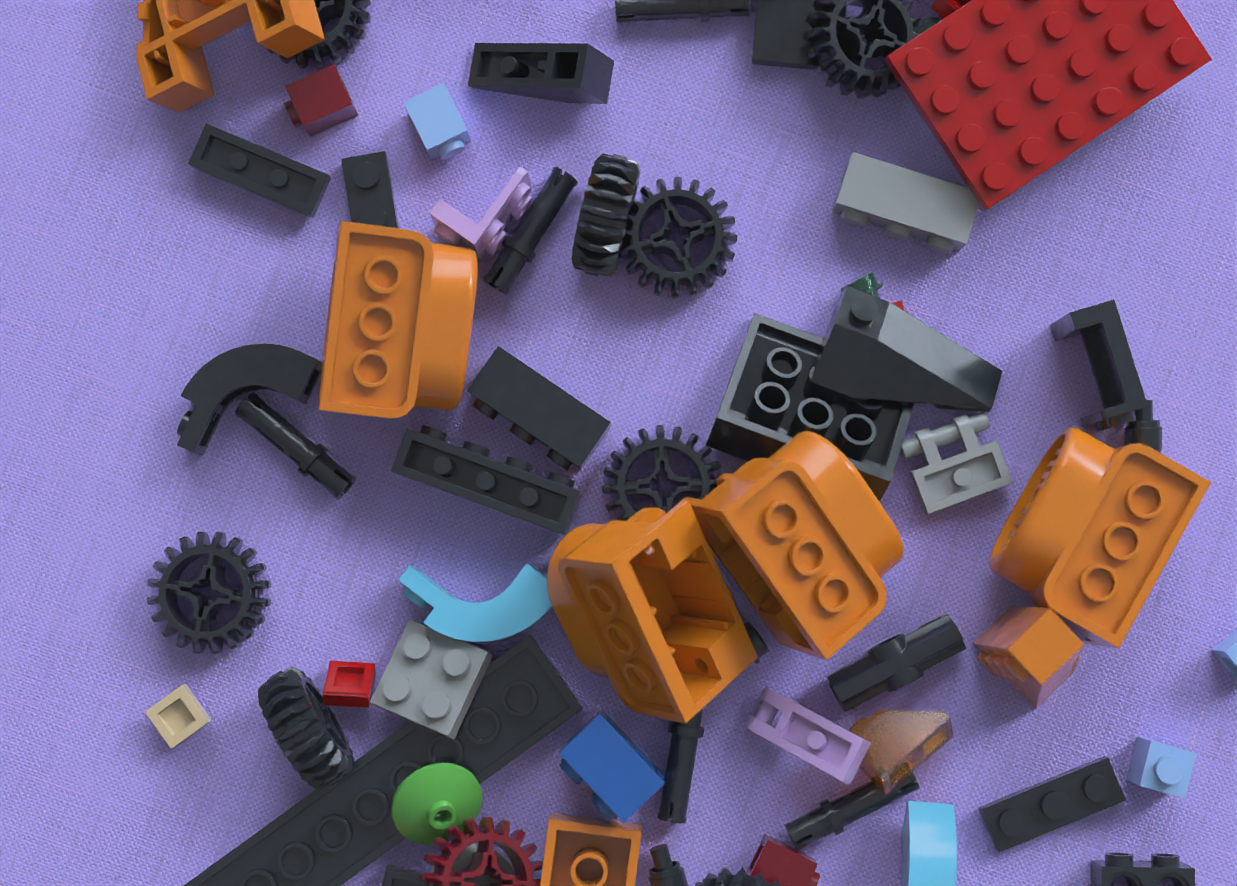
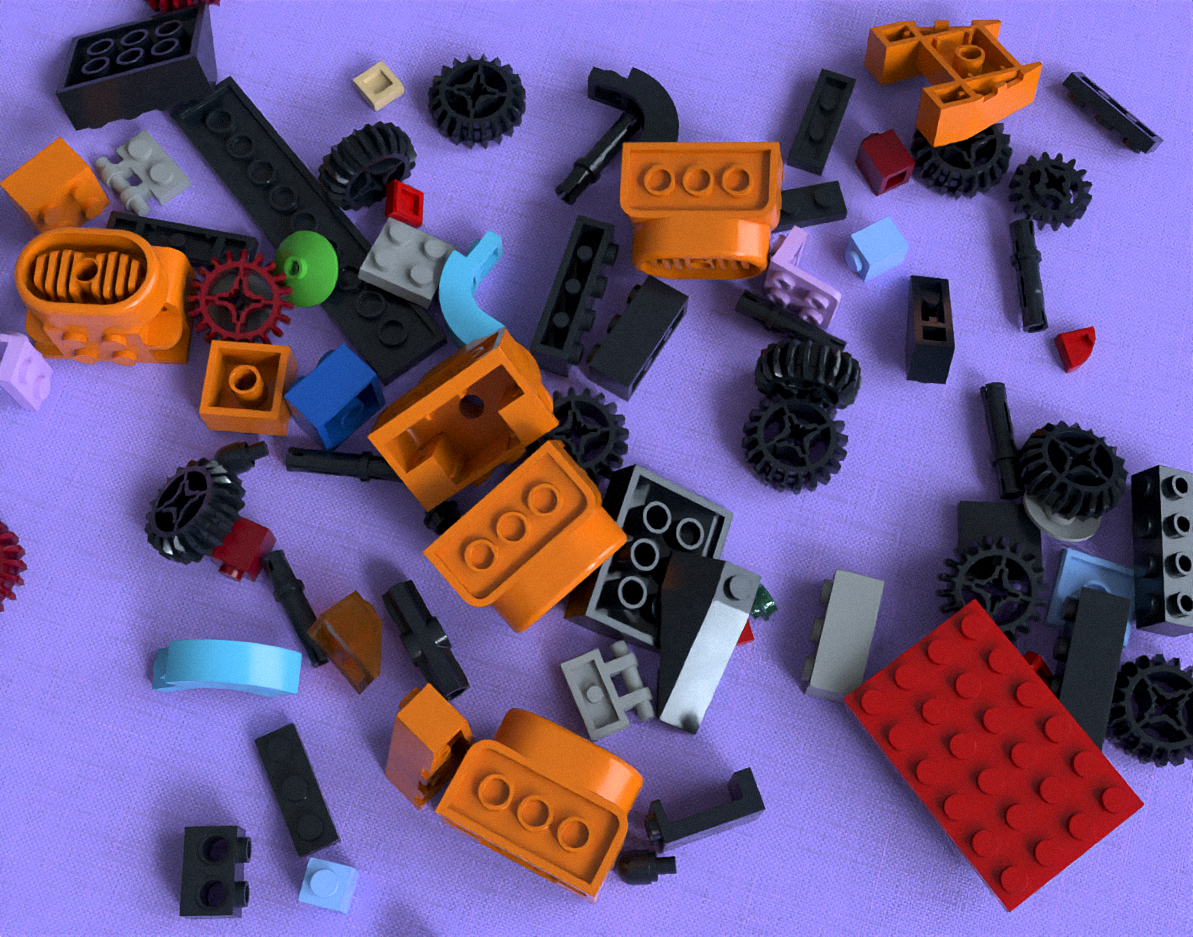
camera: 80 degrees right, 15 degrees down
(809, 736) = (358, 560): lavender plate -> none

